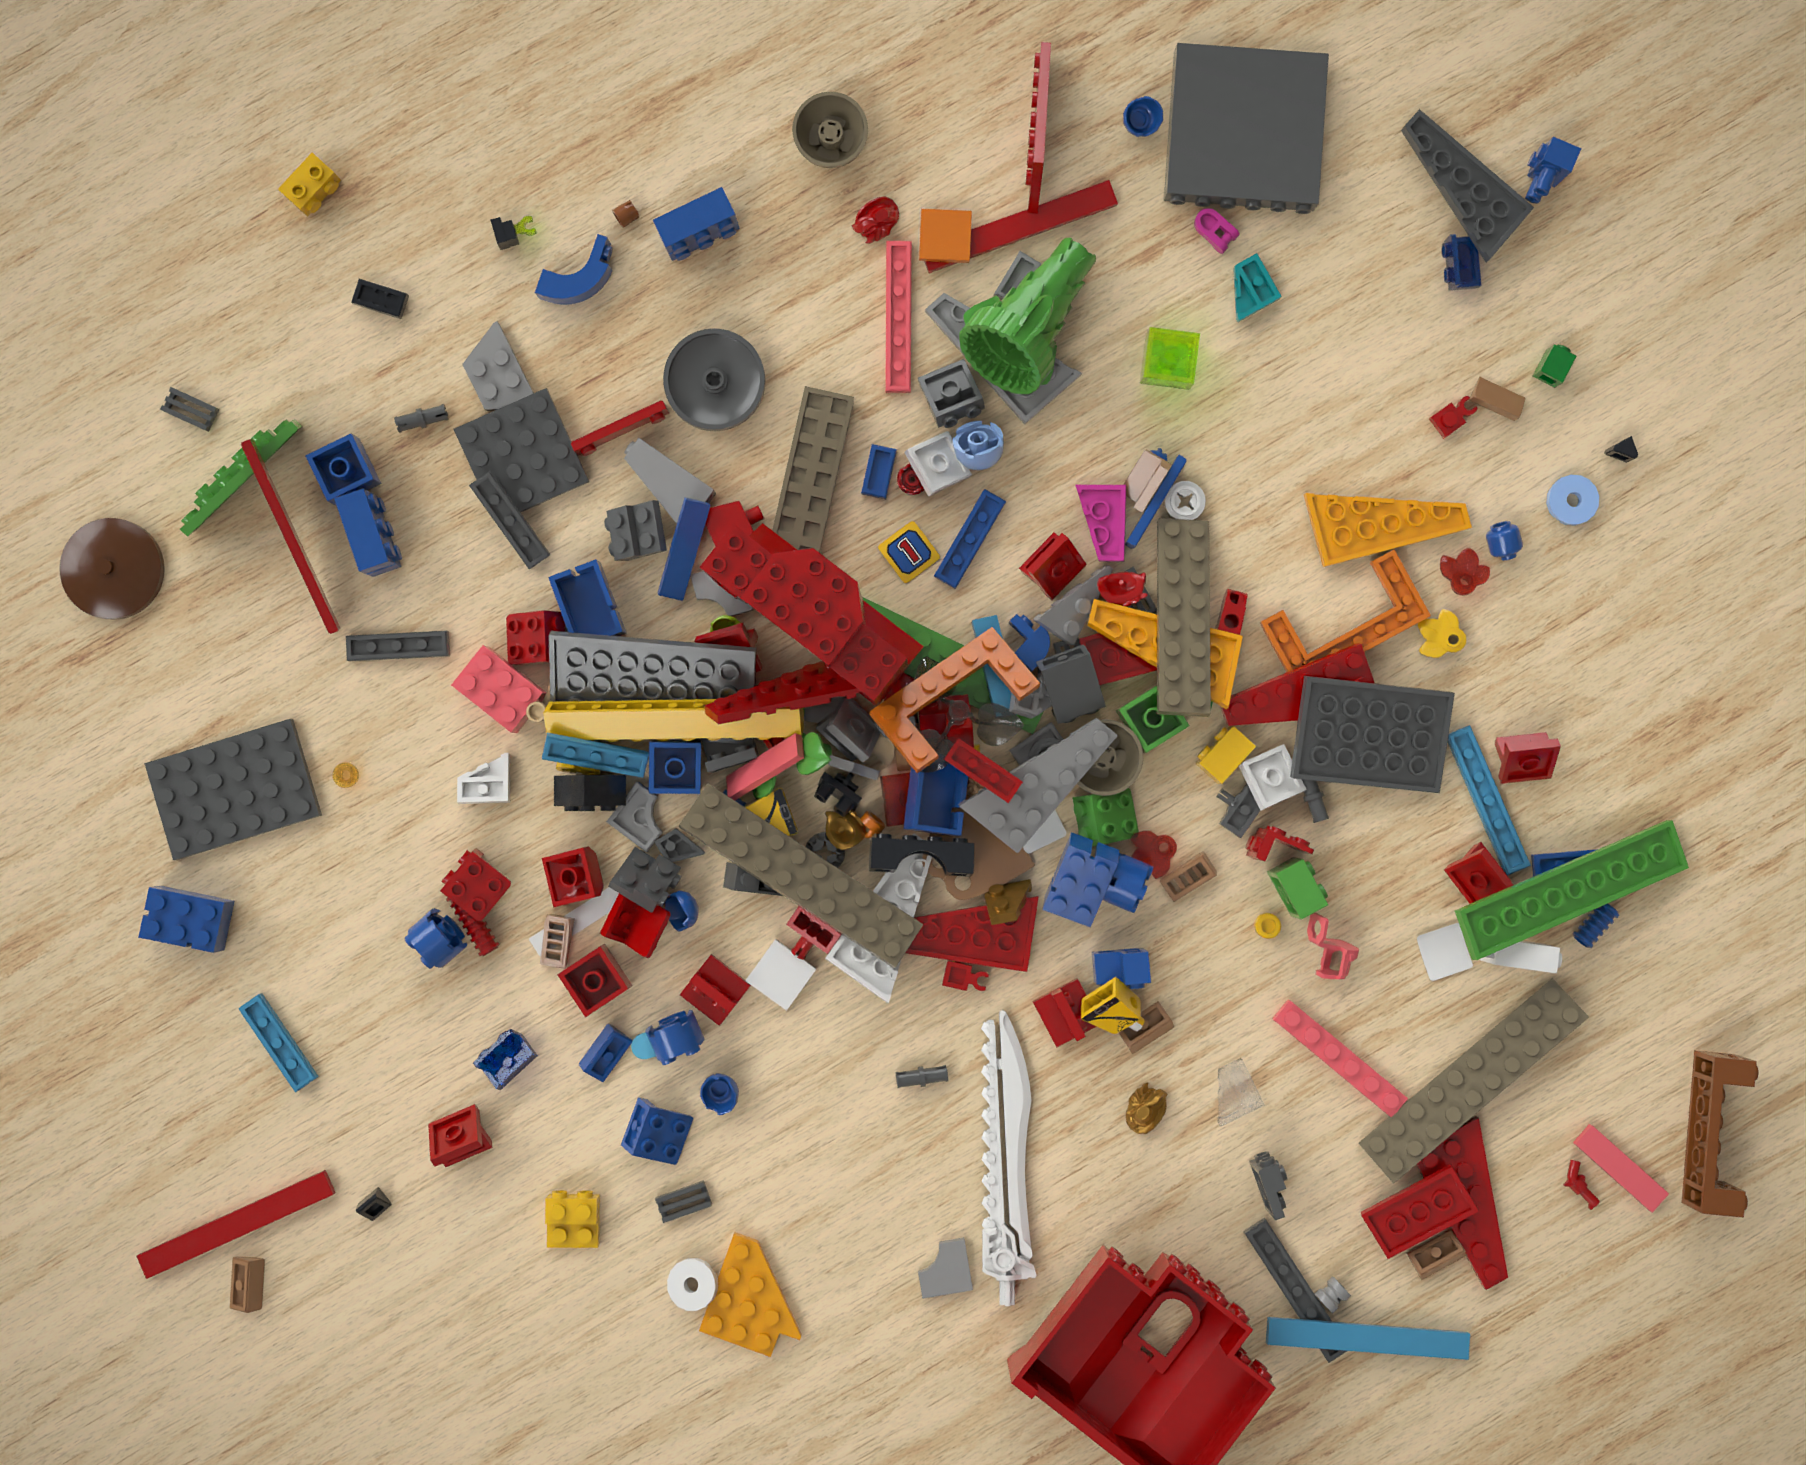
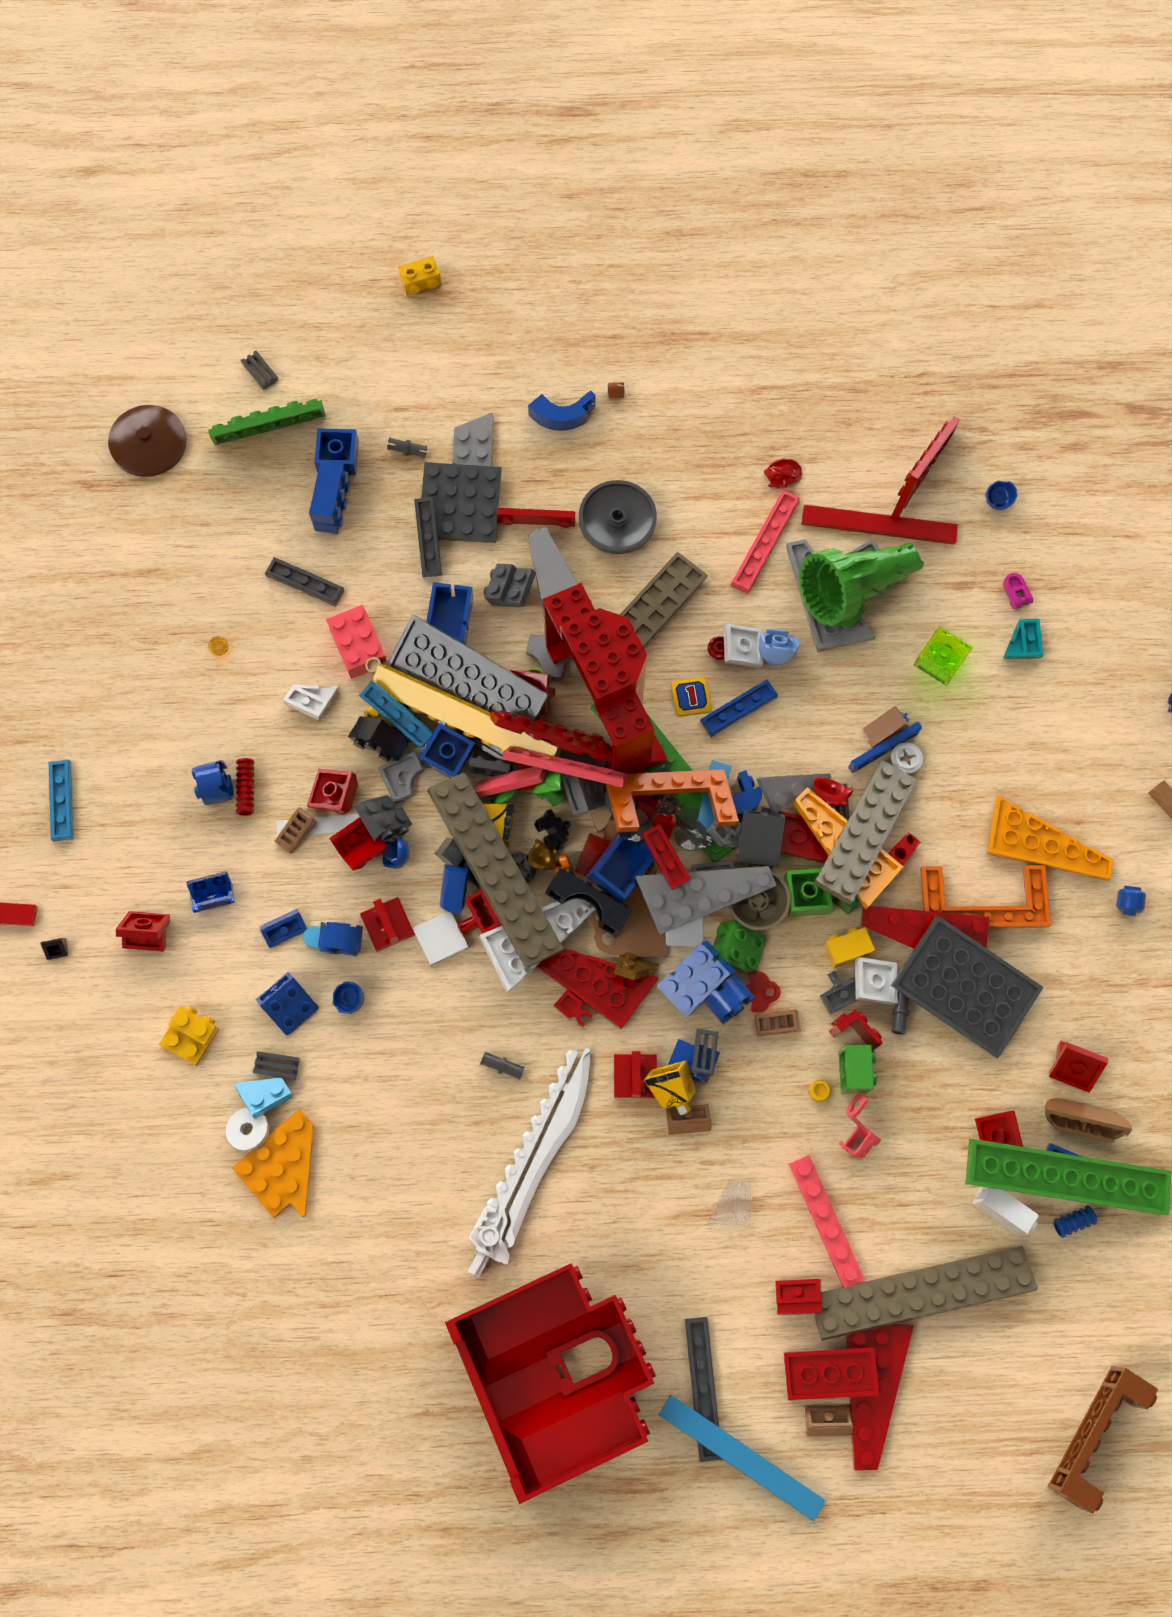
camera: 25 degrees right, 15 degrees down
(186, 919) = (52, 683): blue piece -> none
(233, 789) = (137, 617): dark grey plate -> none
(290, 535) = (277, 471): red tile -> none
(380, 298) = (424, 363): black plate -> none
(475, 885) = (262, 760): red bracket -> none
(507, 232) = (531, 364): black piece -> none
(529, 635) = (396, 617): red bracket -> none
(594, 980) = (306, 869): red brick -> none
(677, 846) = (418, 810): dark grey piece -> none
(683, 549) = (531, 616): blue tile -> none
(688, 1240) = (263, 1094): none -> medium azure wing
(697, 224) = (660, 415): blue piece -> none
(767, 917) = (453, 888): none -> blue brick
(820, 728) = (565, 766): none -> coral tile
(824, 118) = (781, 400): dark tan piece -> none
(854, 767) = (570, 813): light grey tile -> none
(878, 471) = (698, 632): blue tile -> none
(945, 235) = (825, 504): orange tile -> none
(948, 1272) = (441, 1226): light grey tile -> none
(951, 394) = (776, 606): dark grey plate -> none
(1053, 565) = (790, 753): red bracket -> none
(1106, 518) = (844, 739): dark pink wing -> none
(1133, 936) = (702, 1070): none -> dark grey tile
(1145, 1109) = (657, 1180): pearl gold hat -> none
(1246, 127) = (1070, 536): dark grey panel -> none
(1270, 1180) = (726, 1278): dark grey plate -> none
(1332, 1294) = (730, 1406): light grey wheel -> none
(1350, 1152) = (799, 1297): none -> red plate
(1437, 635) = (1050, 943): yellow plate -> none
(1444, 952) = (946, 1182): white sticker -> none
(1450, 418) = (1128, 797): red plate -> none
(1464, 567) = (1091, 906): clear red plate -> none
(1487, 800) = (1032, 1083): dark azure tile -> none
(1561, 810) = (1086, 1120): none -> medium nougat brick
(1578, 1184) = (969, 1424): red piece -> none
(1620, 1168) = (1010, 1430): coral tile -> none

